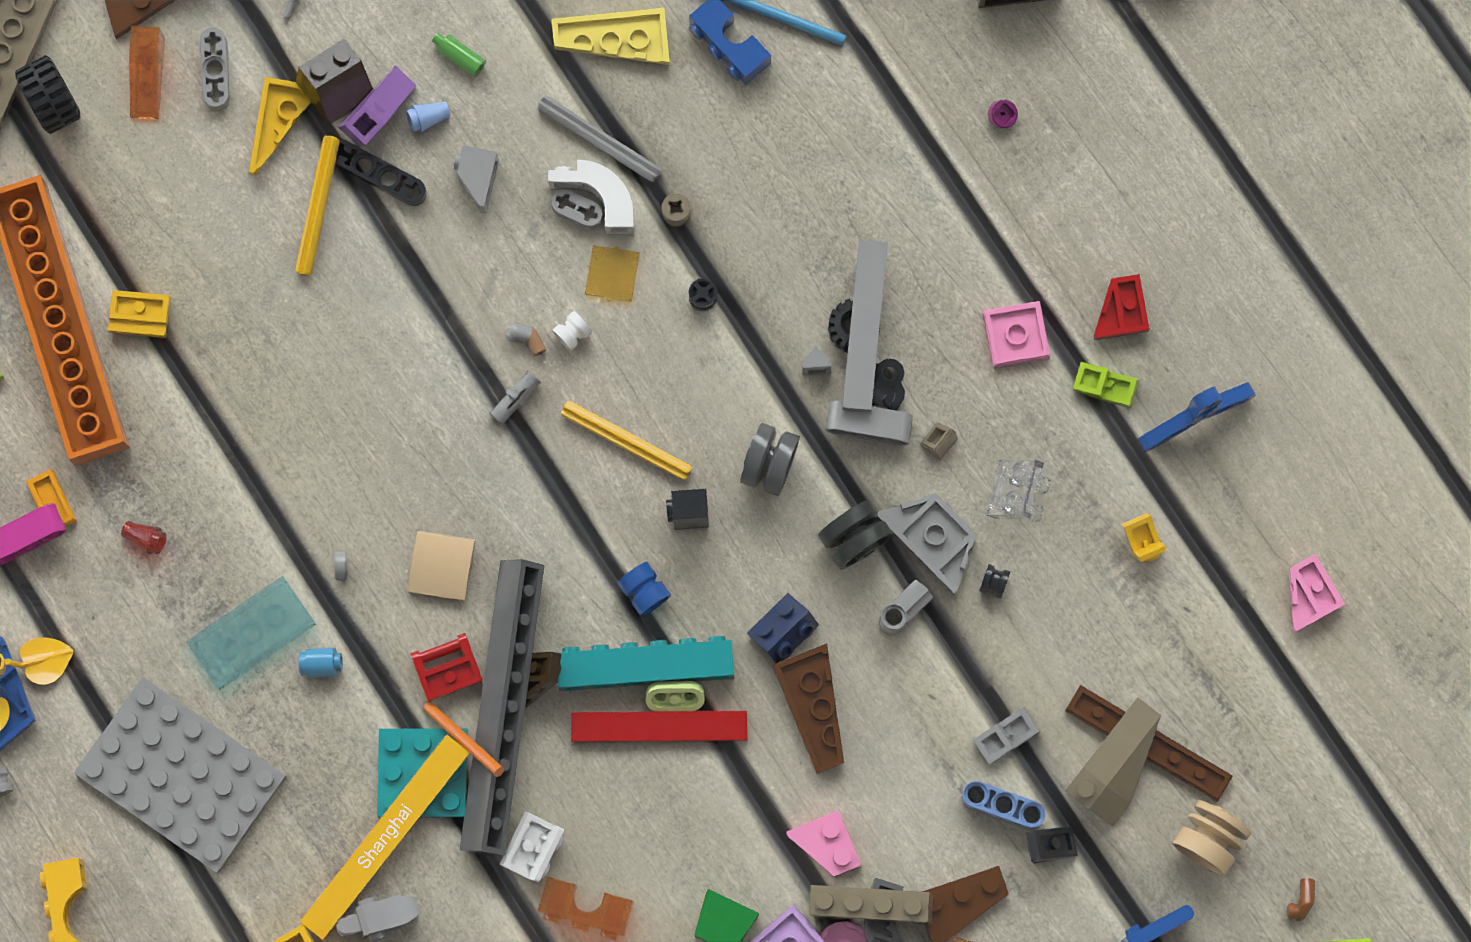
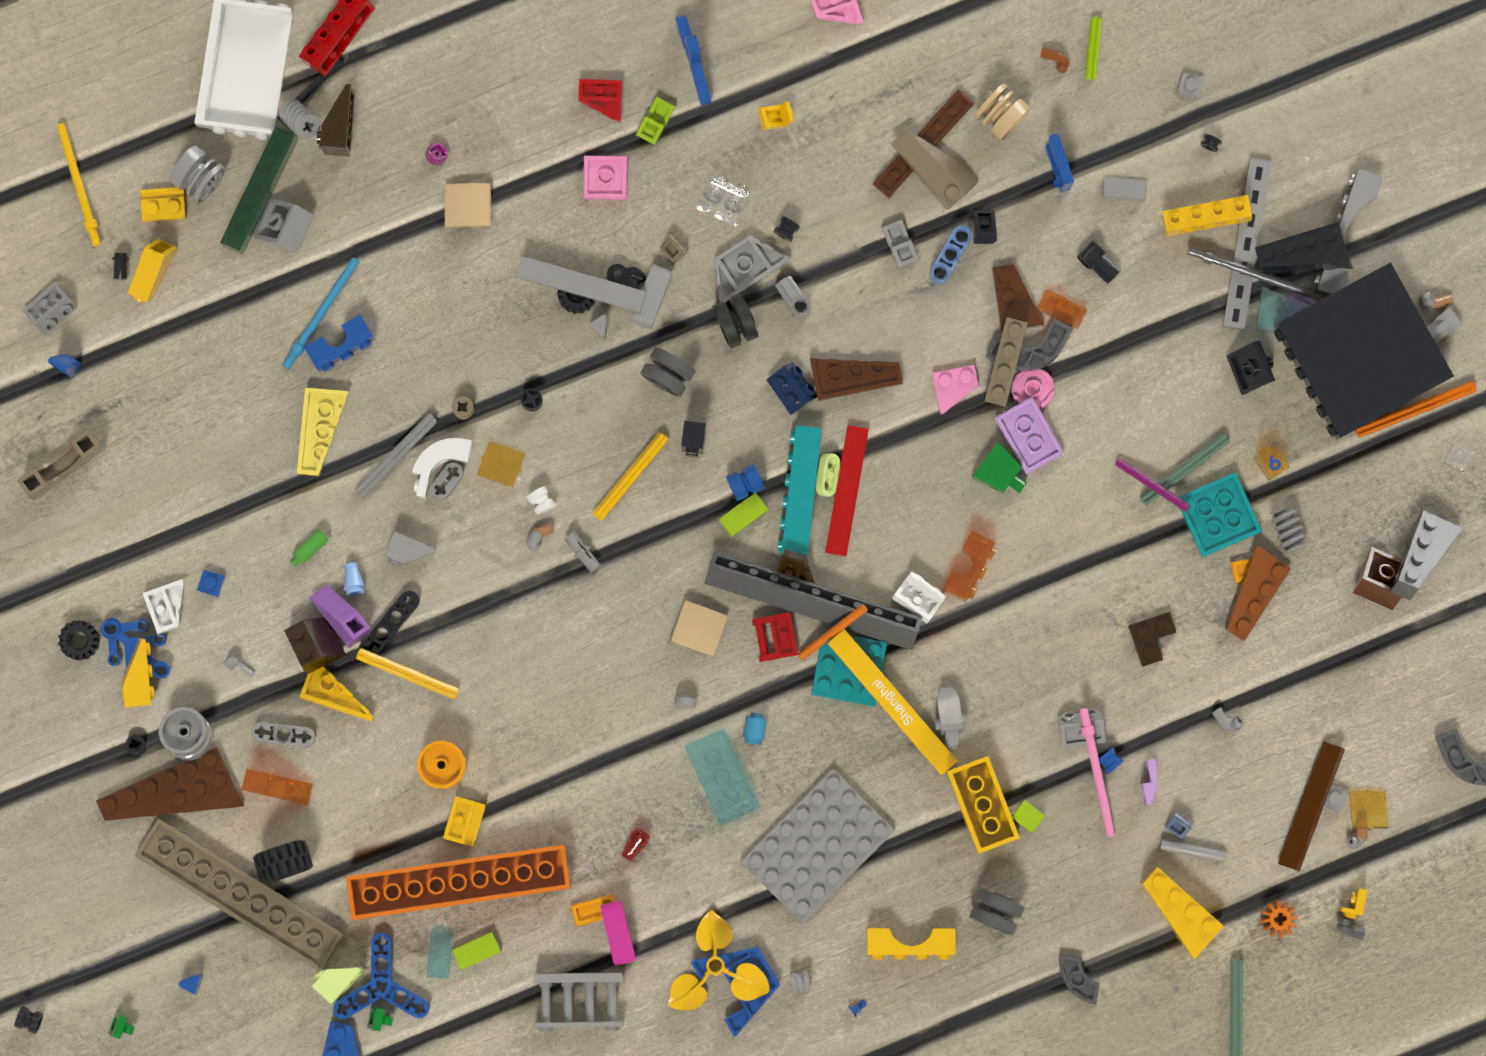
camera: 85 degrees left, 5 degrees up
(221, 273) = (441, 778): none -> light orange wheel
(602, 595) = (743, 514): none -> lime slope
(943, 166) = (468, 205): none -> tan slope

